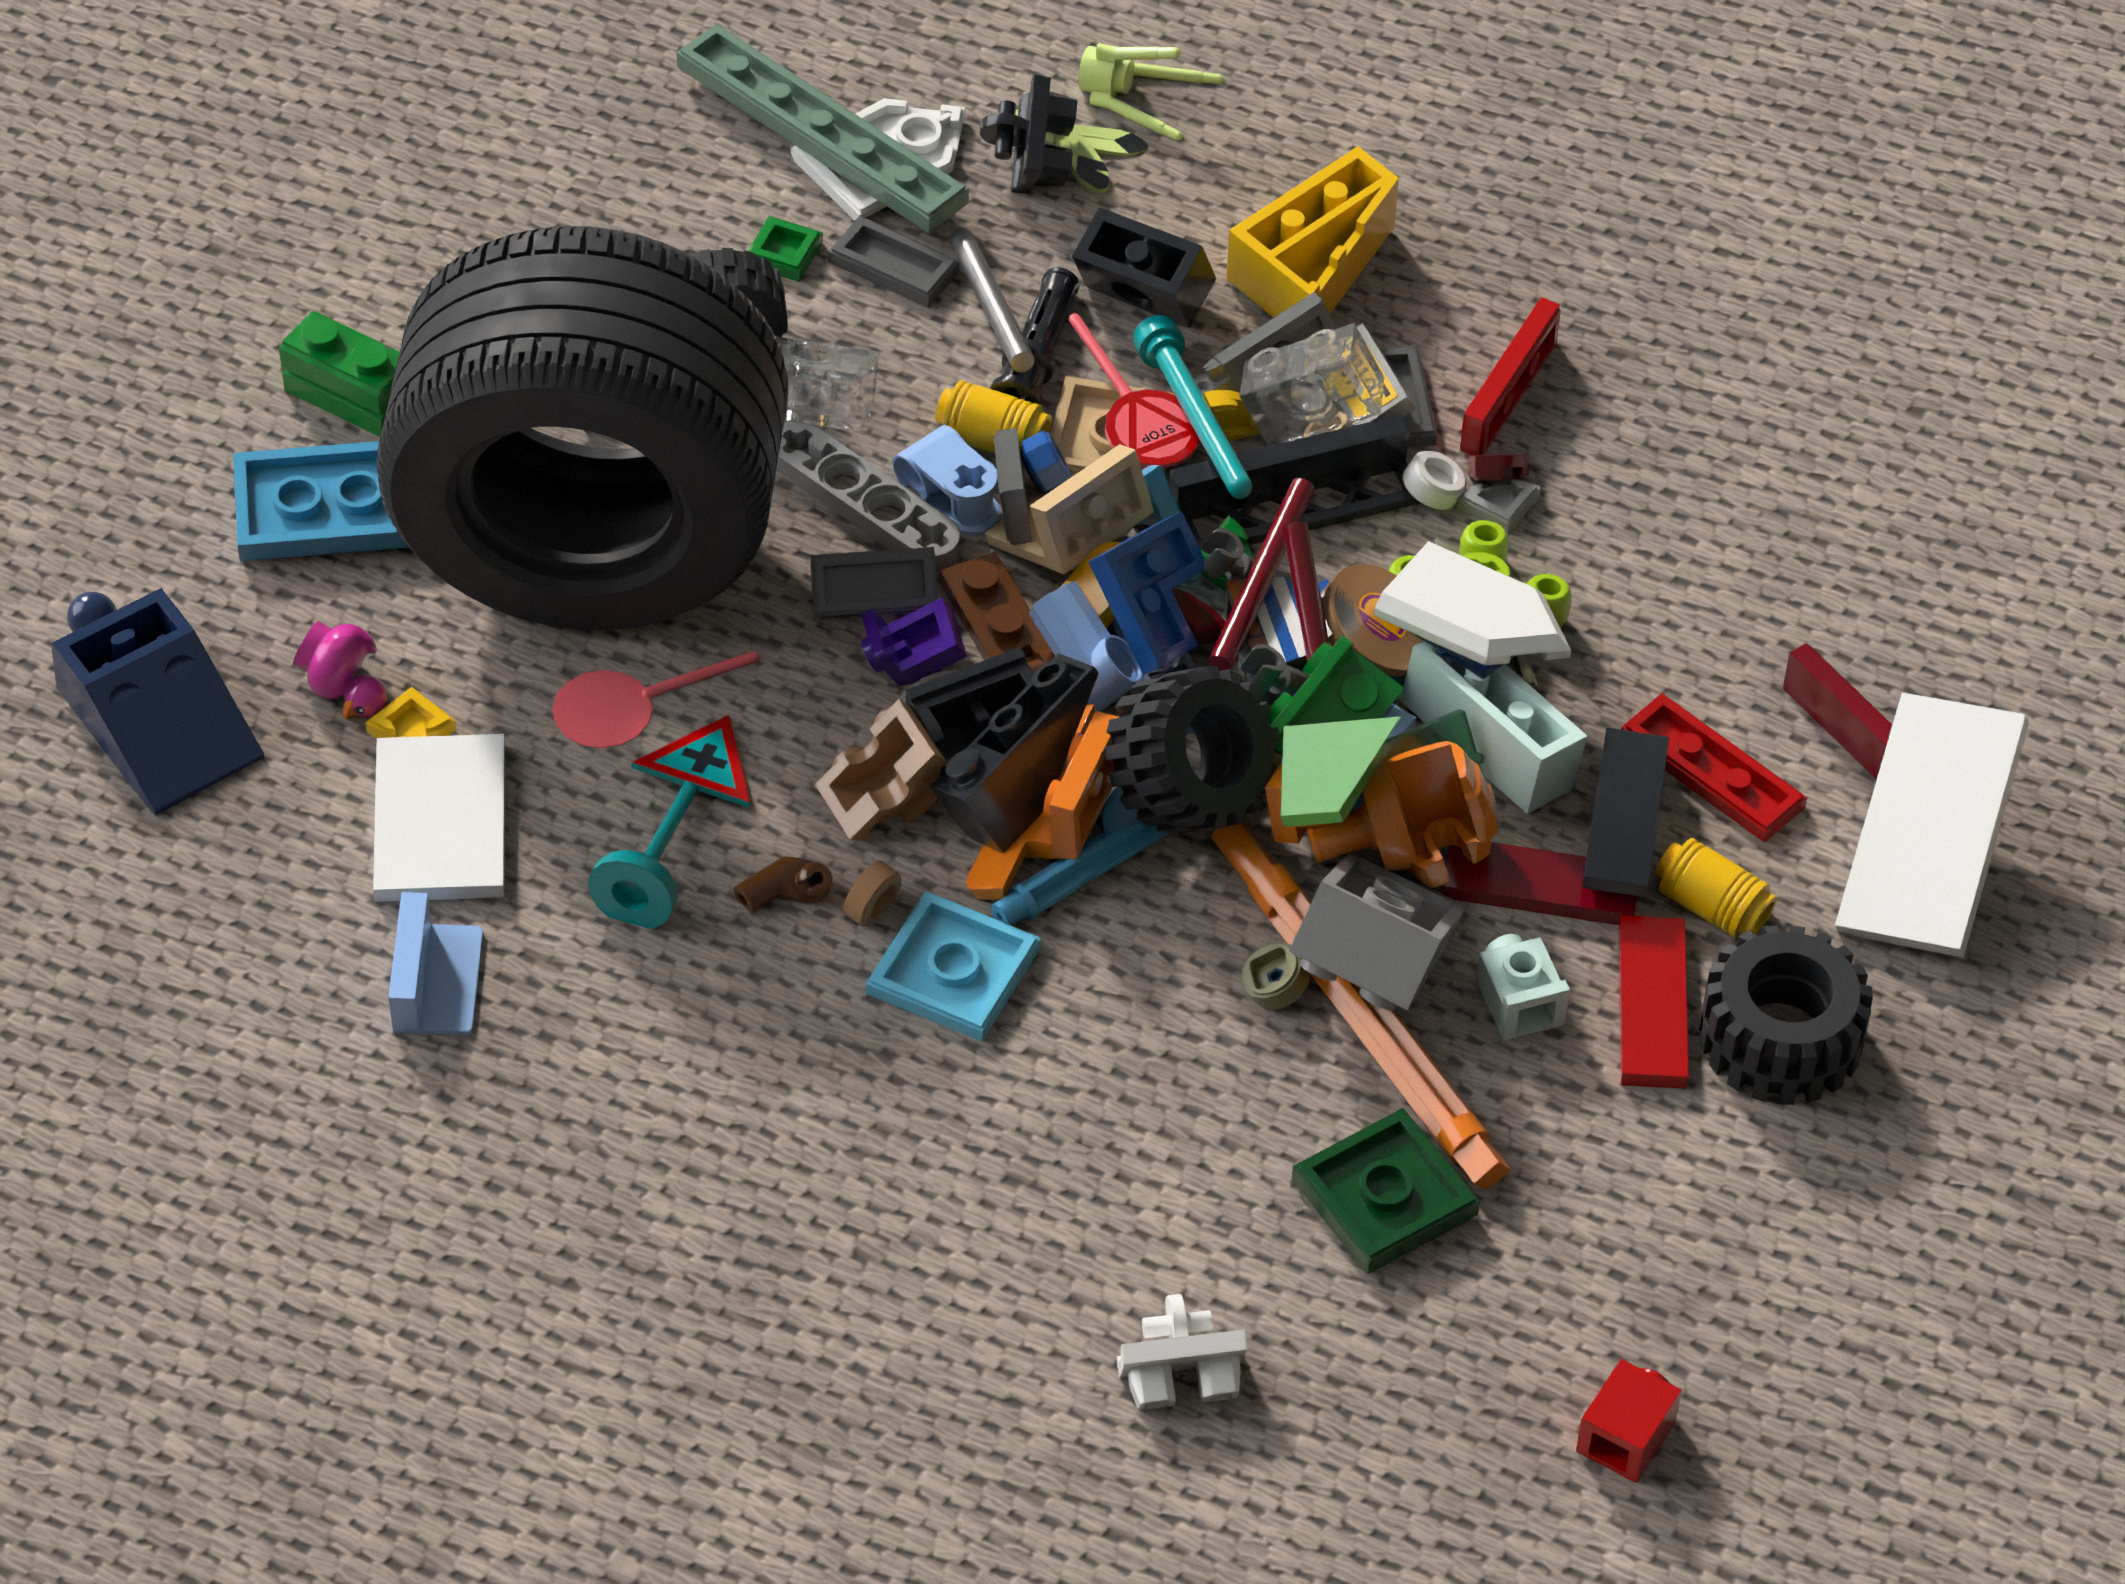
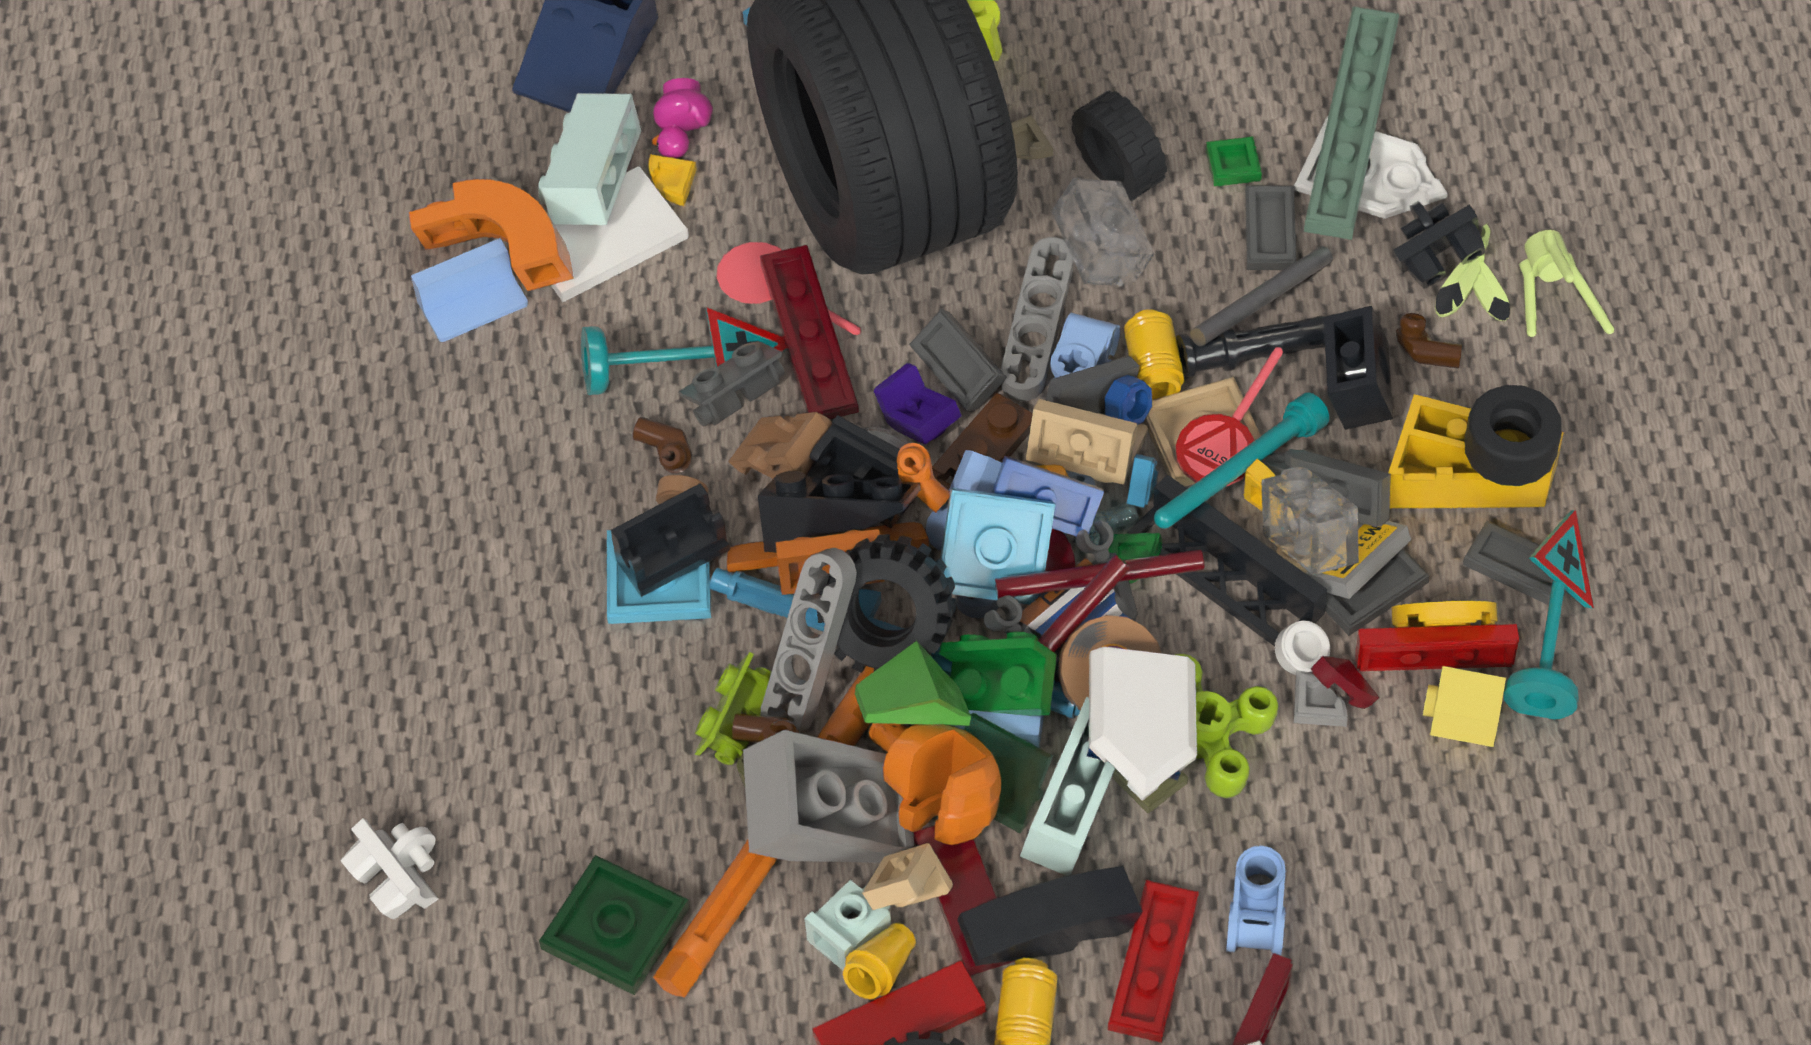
camera: 65 degrees right, 5 degrees up
(347, 766) = (590, 159): none -> light aqua brick
(372, 873) = (503, 212): none -> orange arch
(734, 693) = (808, 332): none -> dark red tile
(751, 781) = (751, 369): none -> dark grey hinge
(944, 922) = (669, 540): none -> black hinge
(1038, 645) = (916, 466): none -> orange arm
(1152, 212) = (1422, 347): none -> reddish brown arm
(1163, 622) = (993, 539): none -> medium azure tile
(1177, 971) = (741, 692): none -> lime hinge
(1204, 833) = (800, 640): none -> light grey beam
(1250, 939) = (758, 727): none -> reddish brown arm
(1351, 173) = (1516, 409): none -> black tyre
(1448, 276) = (1506, 559): none -> dark grey tile
(1491, 342) = (1444, 614): none -> yellow tile
(1517, 899) = (907, 878): none -> tan bracket
(1593, 388) = (1465, 706): none -> light yellow brick
(1593, 981) = (877, 963): none -> yellow cone
(1618, 323) = (1540, 689): none -> teal piece
(1709, 650) = (1257, 910): none -> light blue piece

